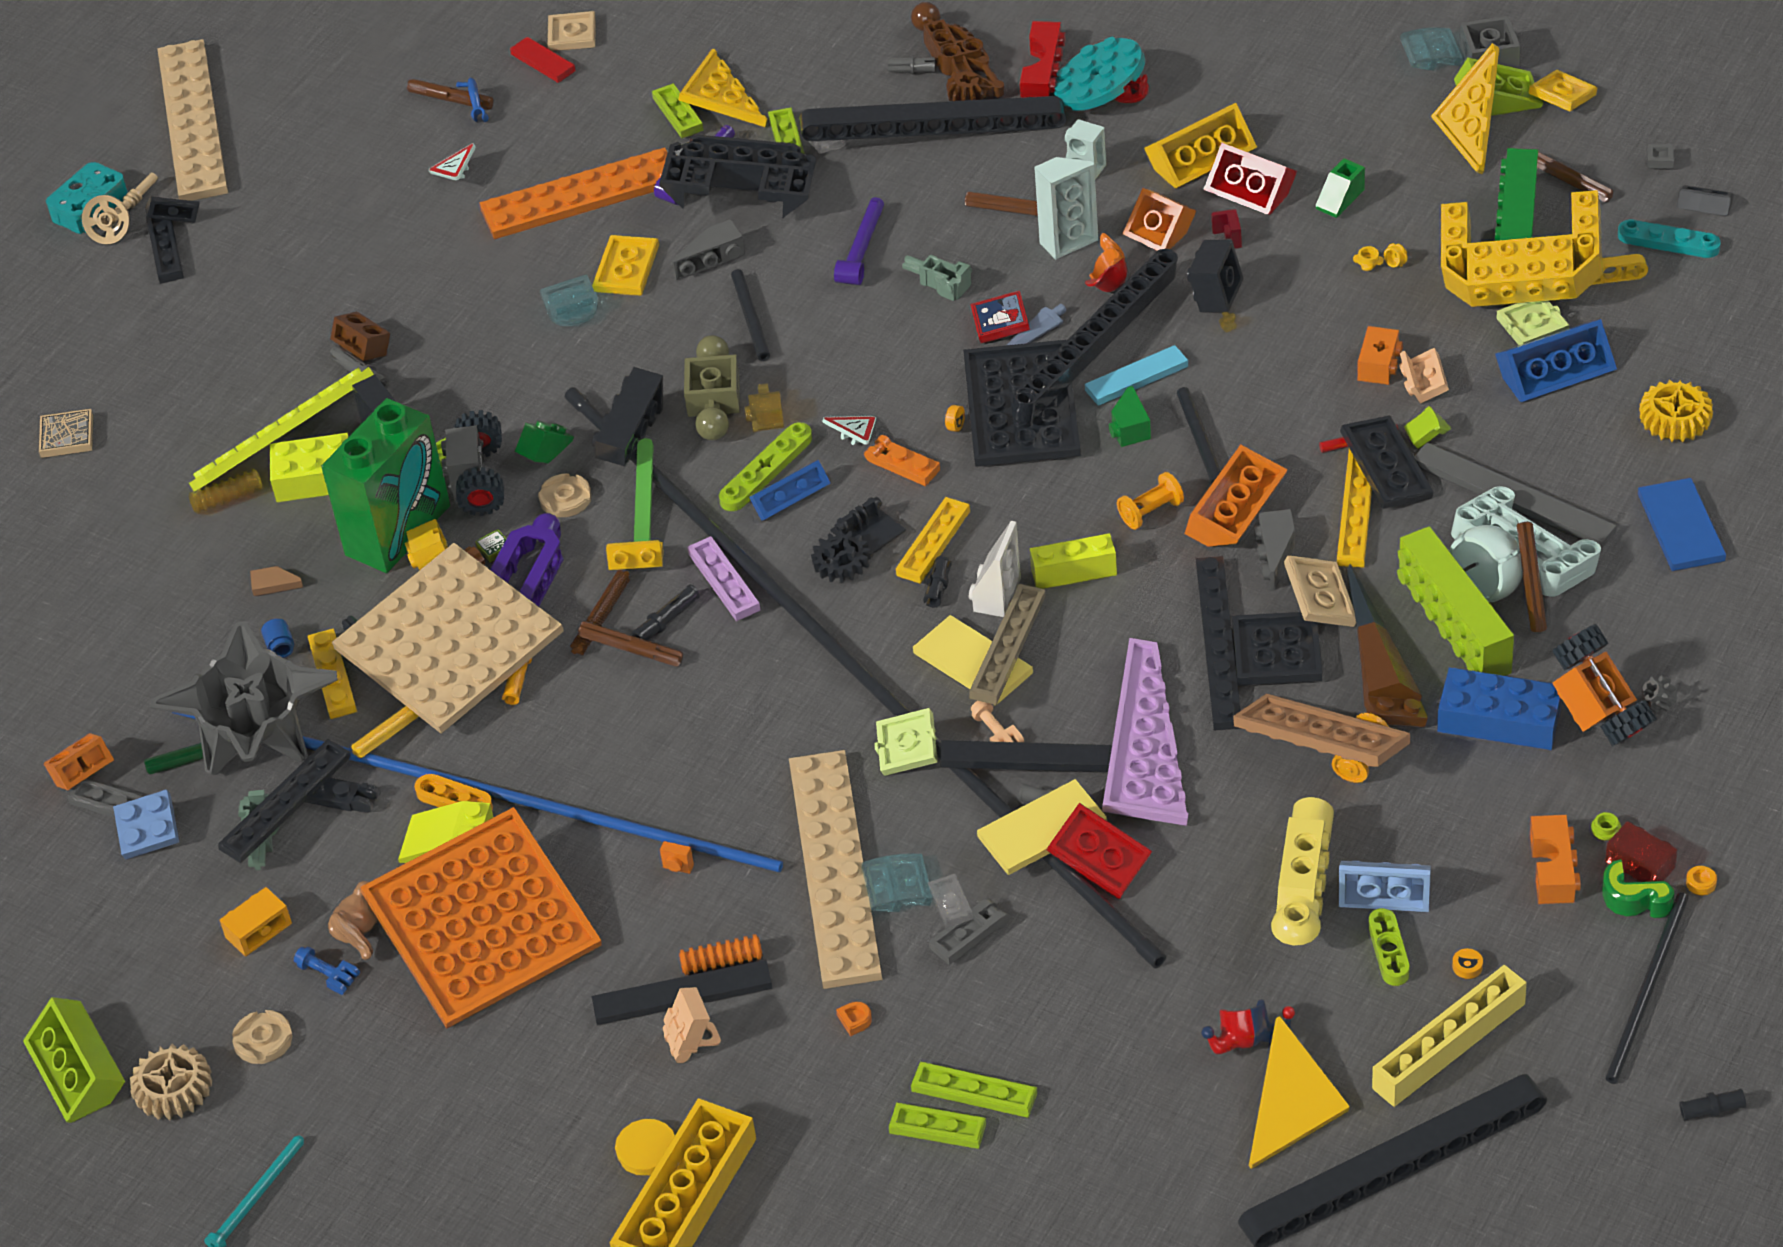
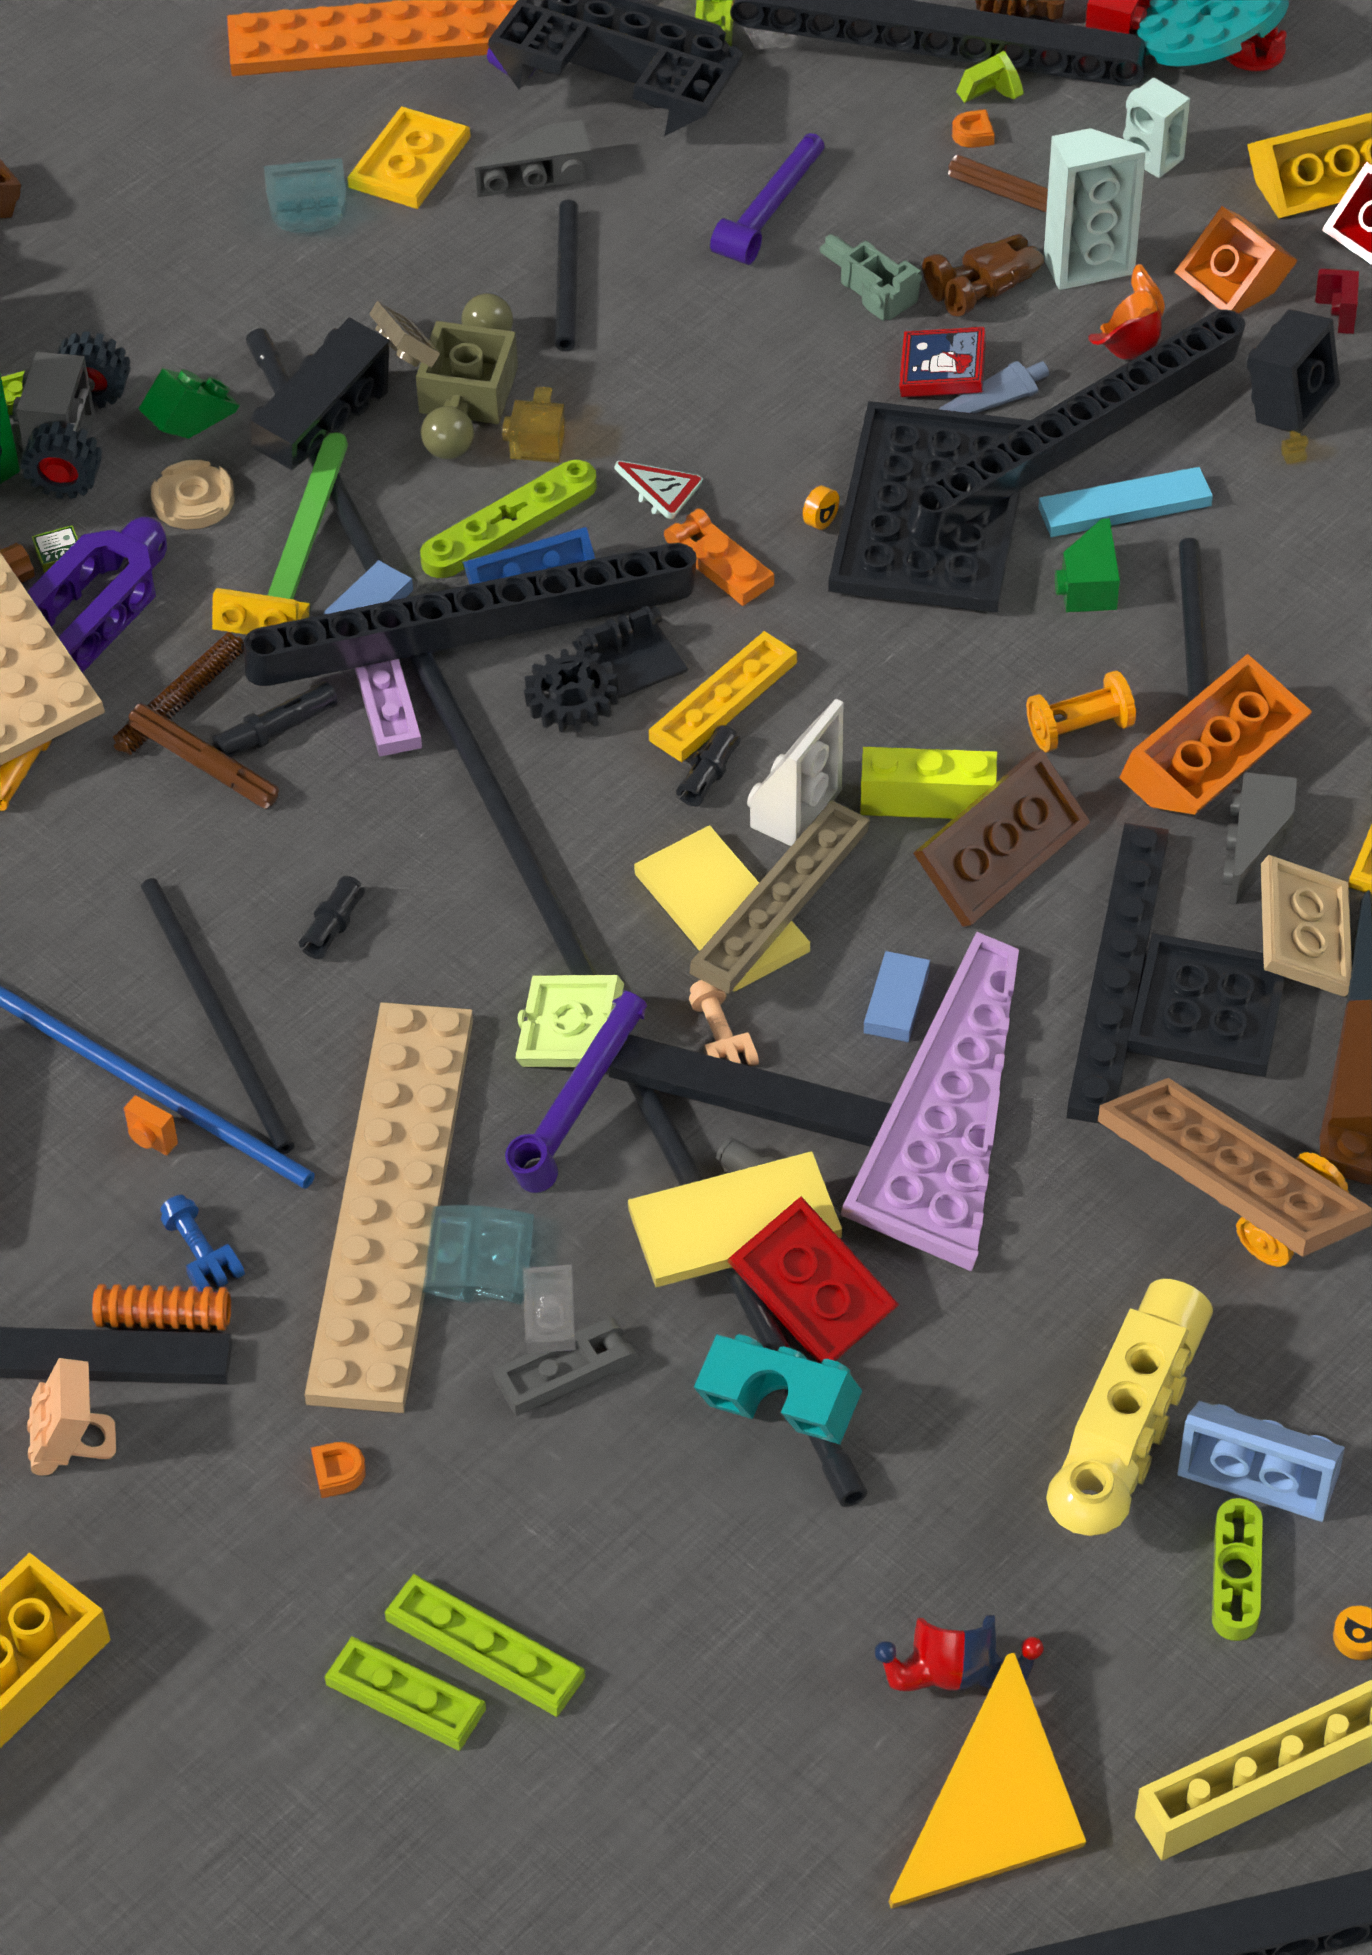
camera: 10 degrees right, 5 degrees up
(670, 373) = (404, 336): none -> dark tan plate
(687, 784) = (218, 1017): none -> black piece
(700, 532) = (376, 586): none -> medium blue tile
(712, 901) = (179, 1215): none -> blue hinge
(741, 718) = (331, 917): none -> black pin
(765, 526) = (468, 614): none -> black beam
(924, 783) = (573, 1098): none -> dark purple piece
(971, 174) = (973, 129): none -> orange tile
(975, 137) = (992, 73): none -> lime tile
(1006, 258) = (984, 272): none -> reddish brown piece
(1075, 907) = (744, 1372): none -> teal arch
(1093, 686) = (896, 996): none -> medium blue tile
(1127, 582) = (1001, 838): none -> reddish brown plate

